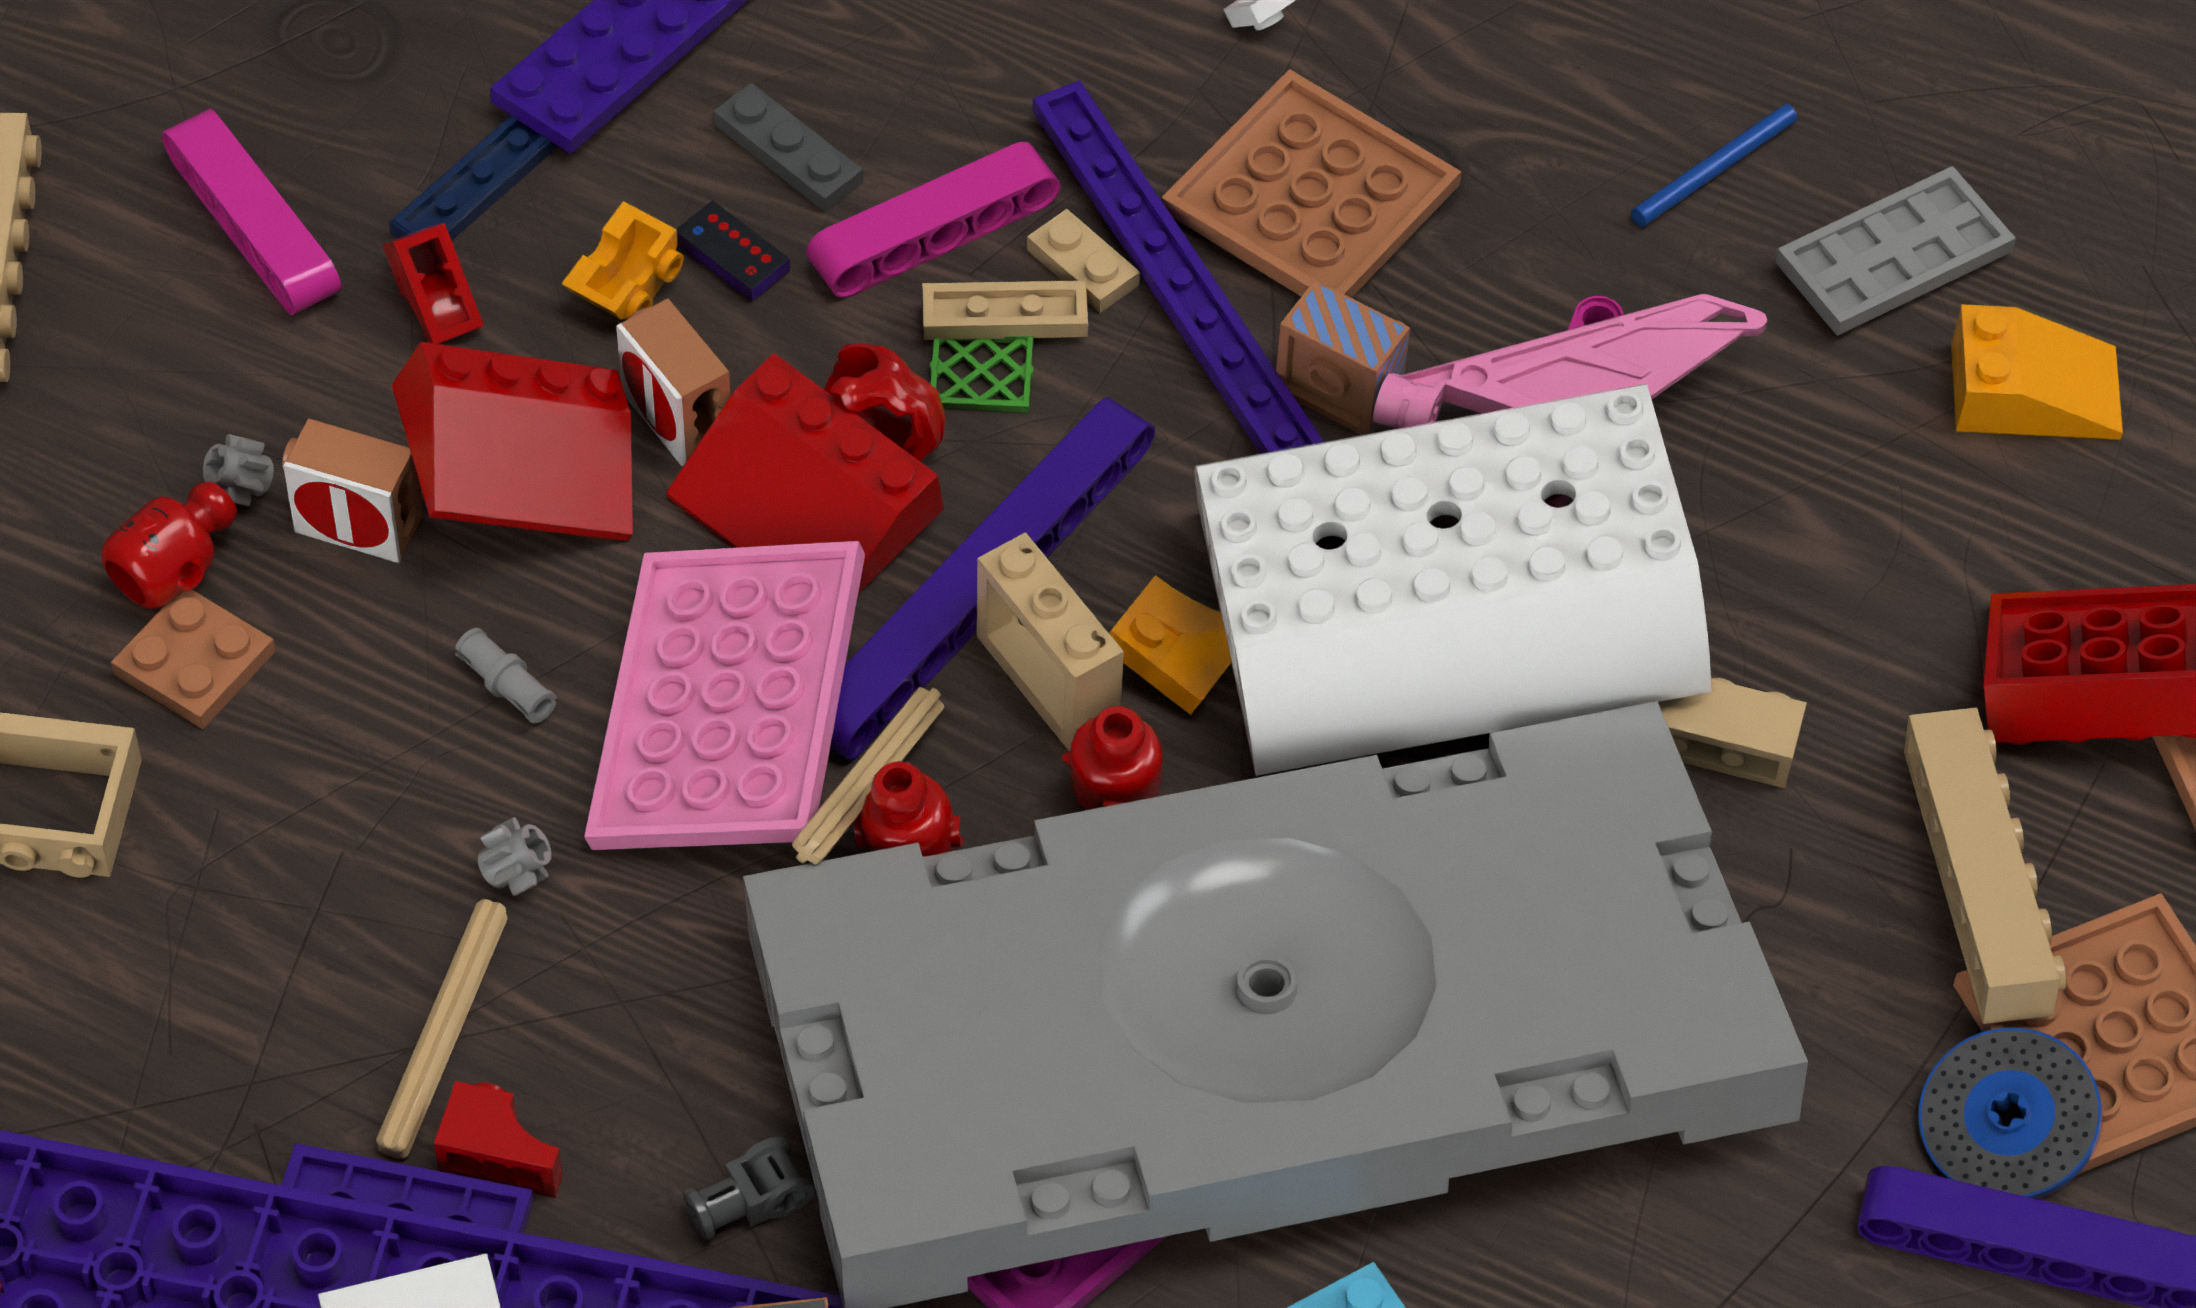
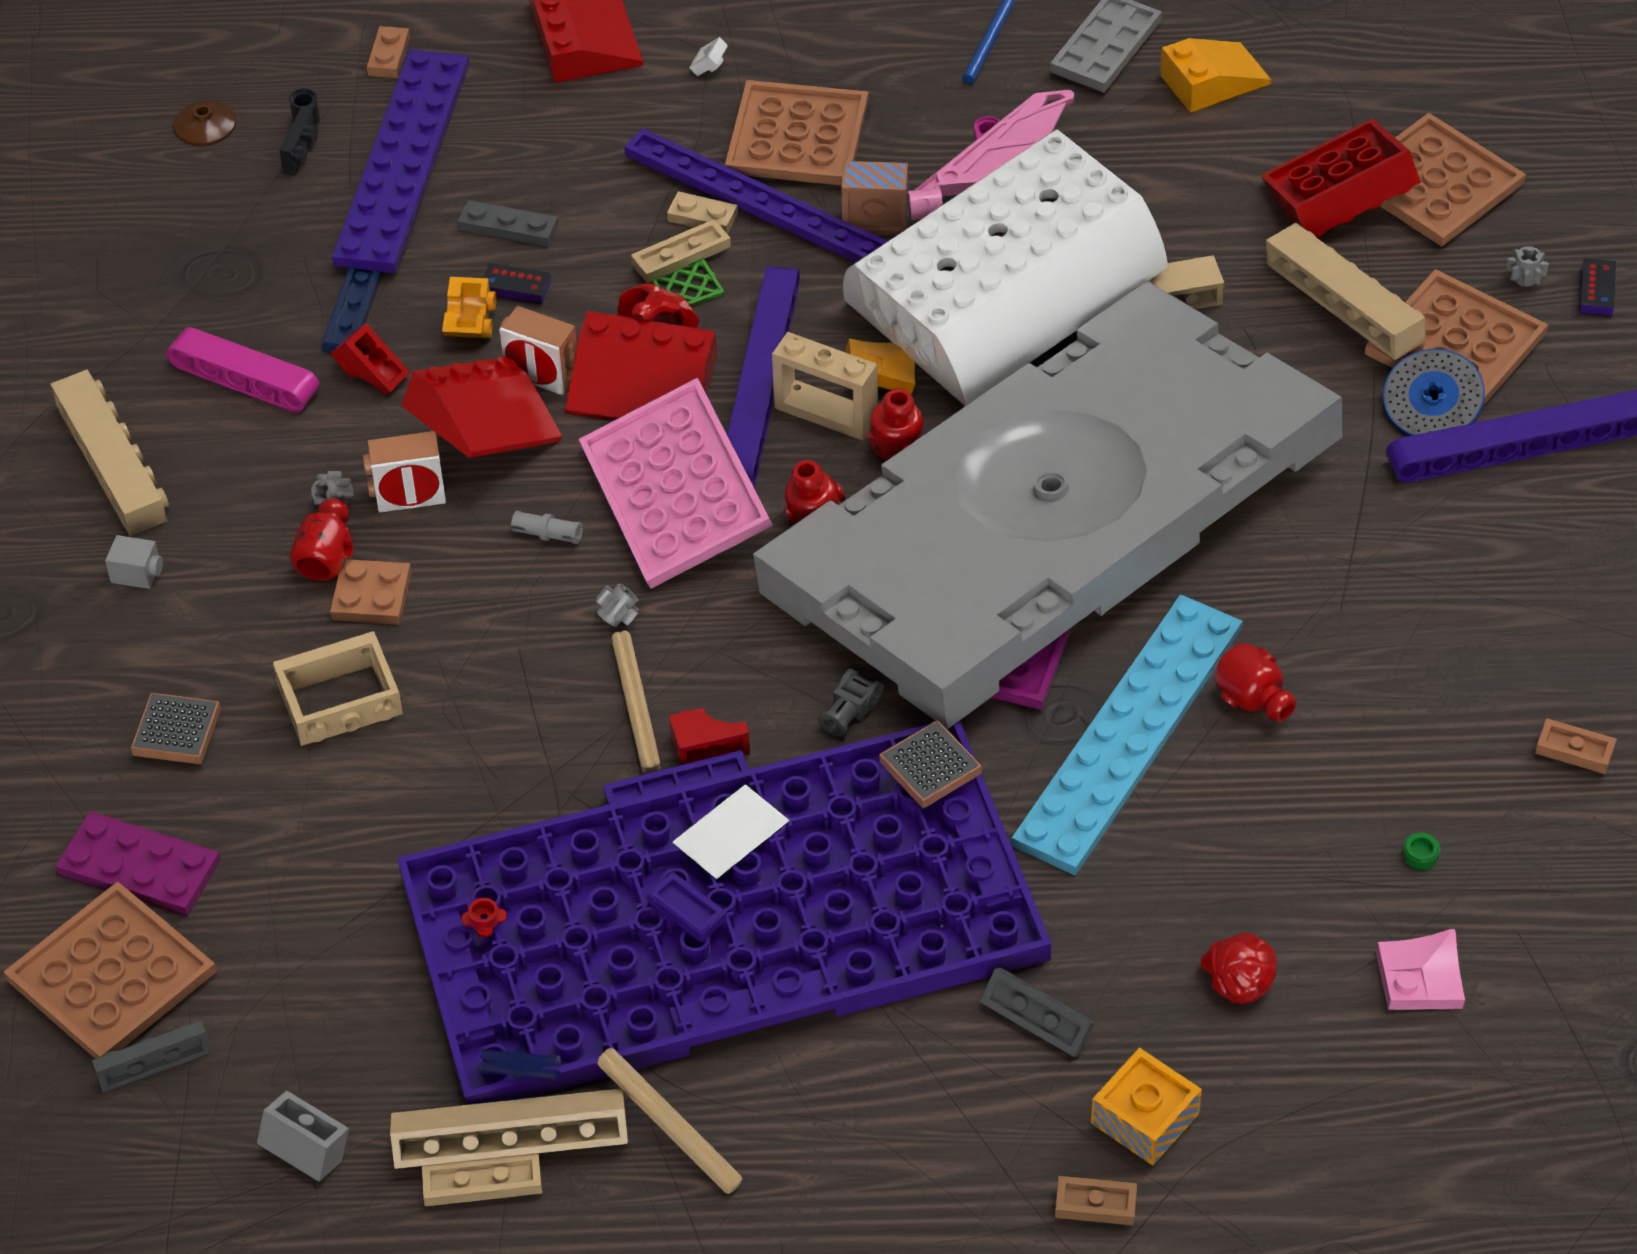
camera: 25 degrees left, 5 degrees down
(848, 797) = (776, 484): tan axle -> none
(932, 219) = (612, 224): dark pink beam -> none

